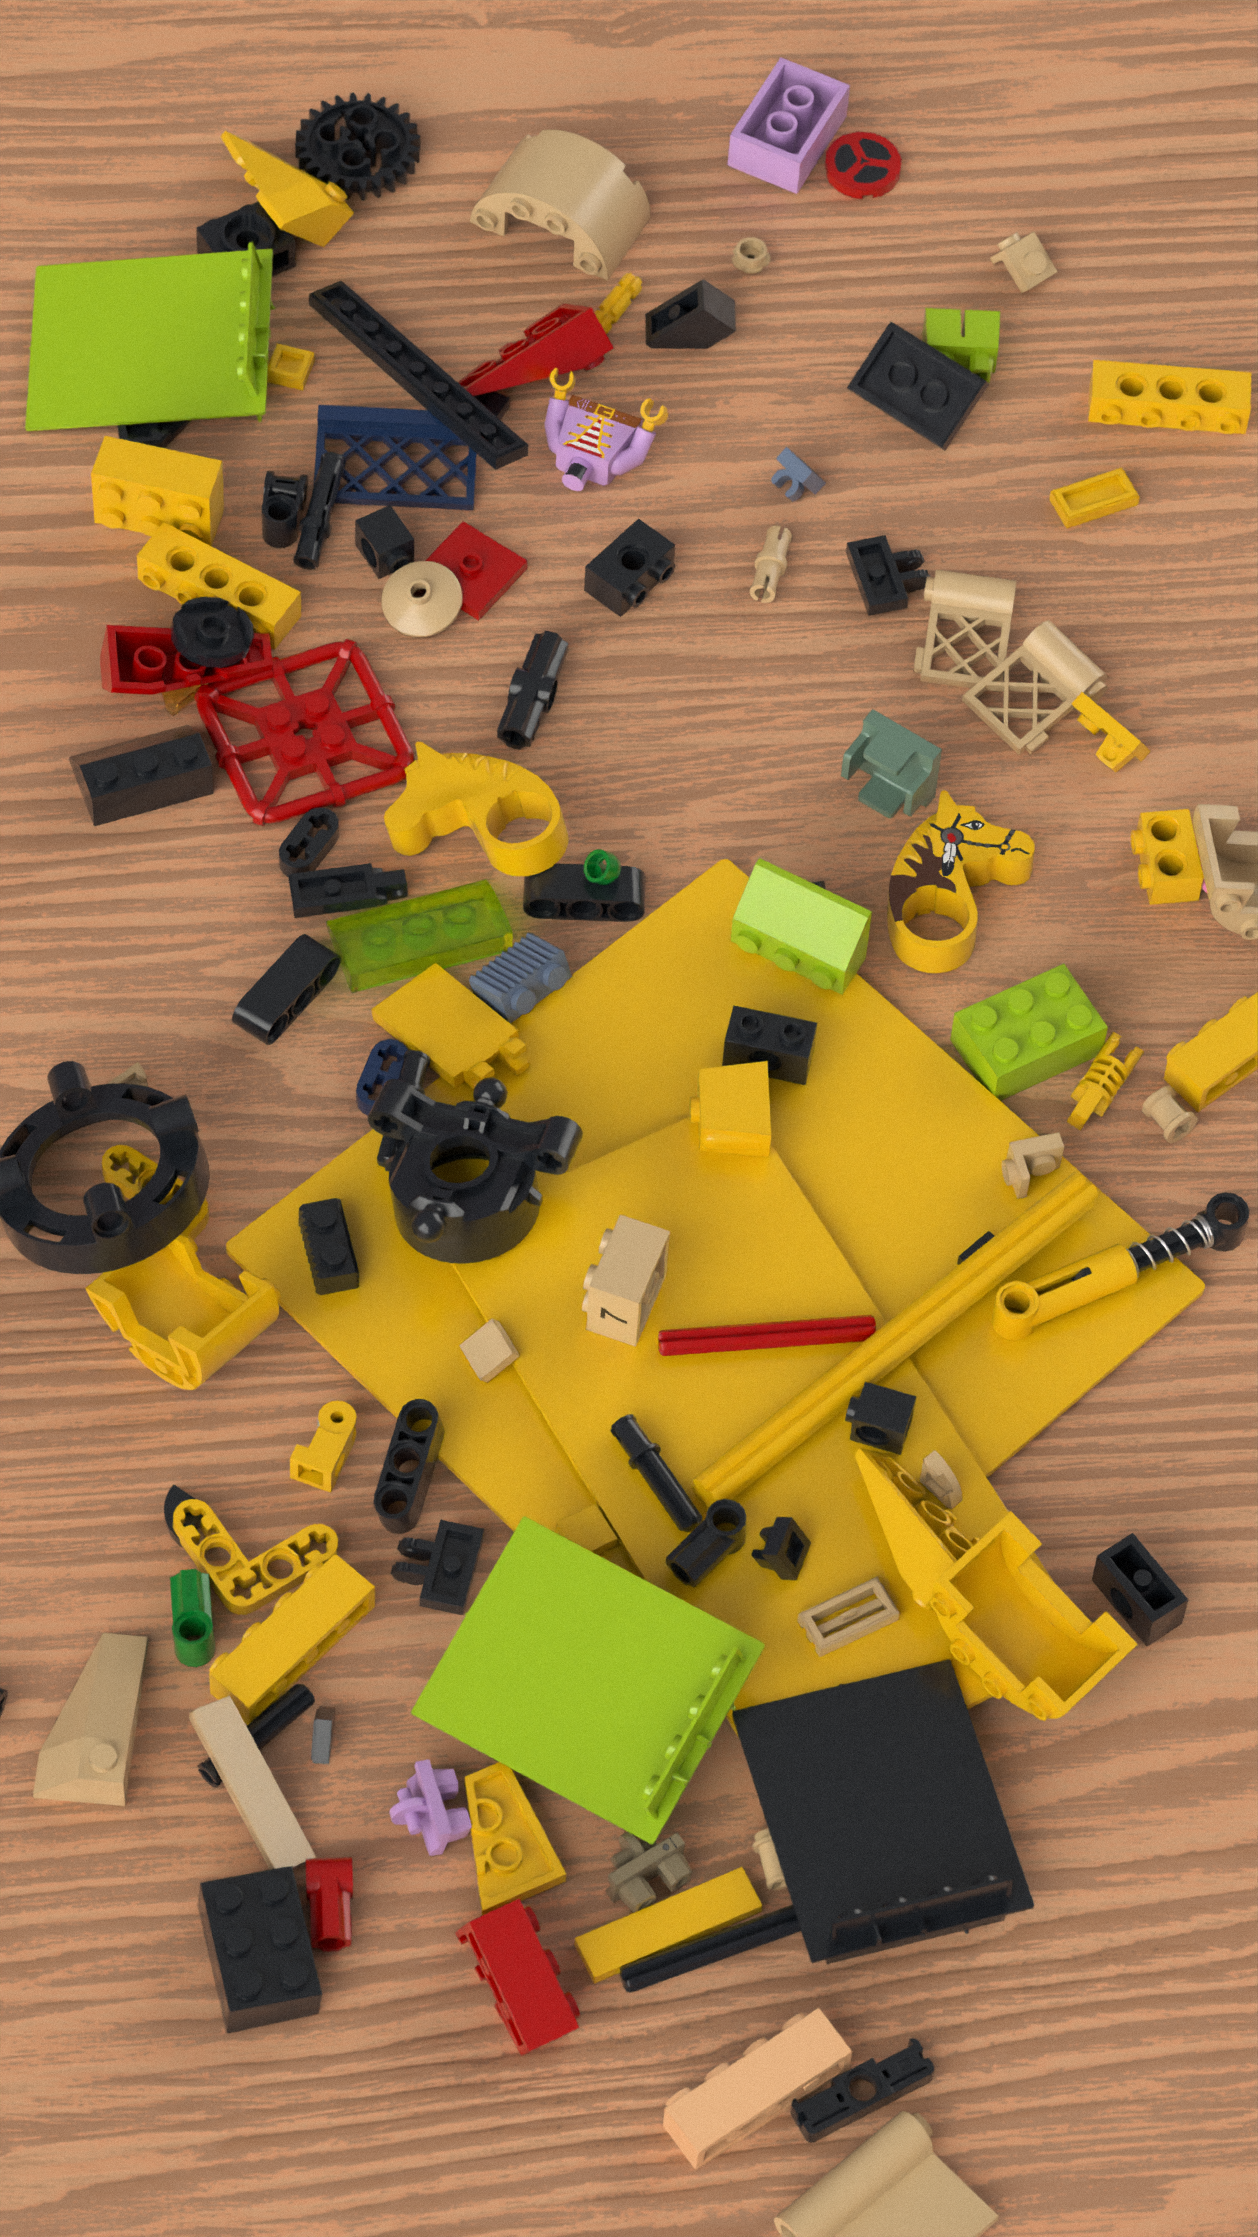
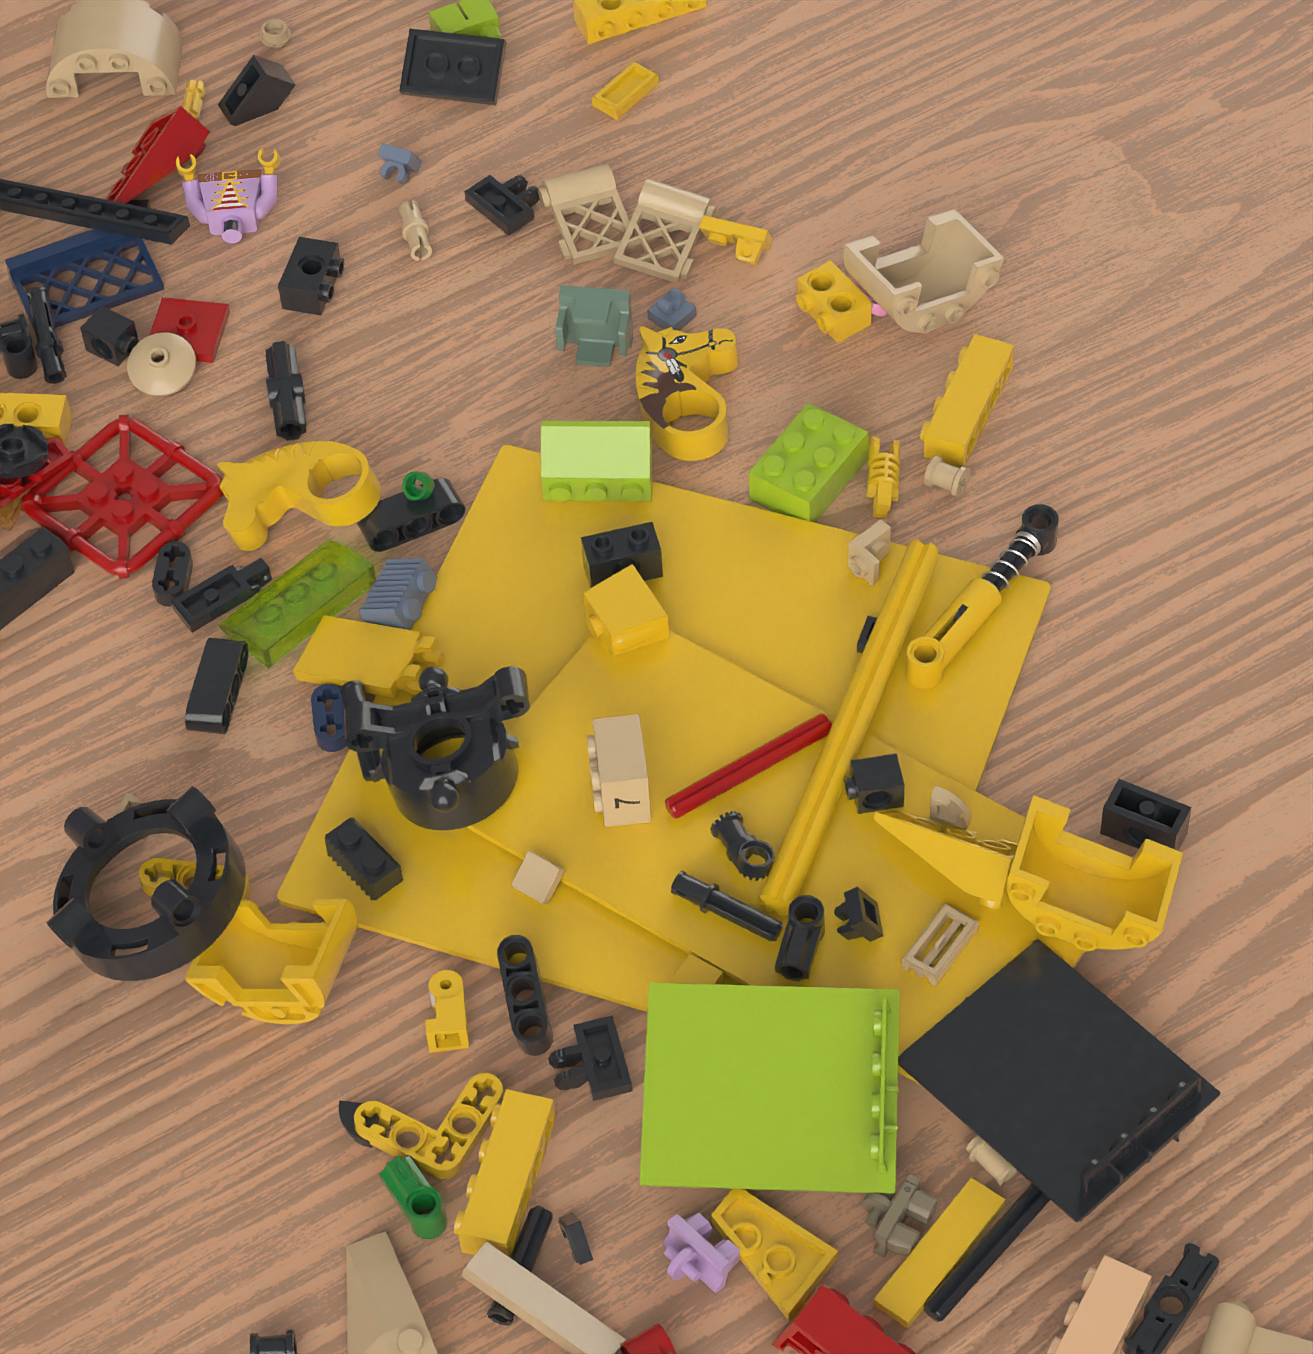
camera: 20 degrees left, 5 degrees down
(707, 1417) = (742, 846): none -> black connector
(991, 787) = (672, 311): none -> sand blue tile

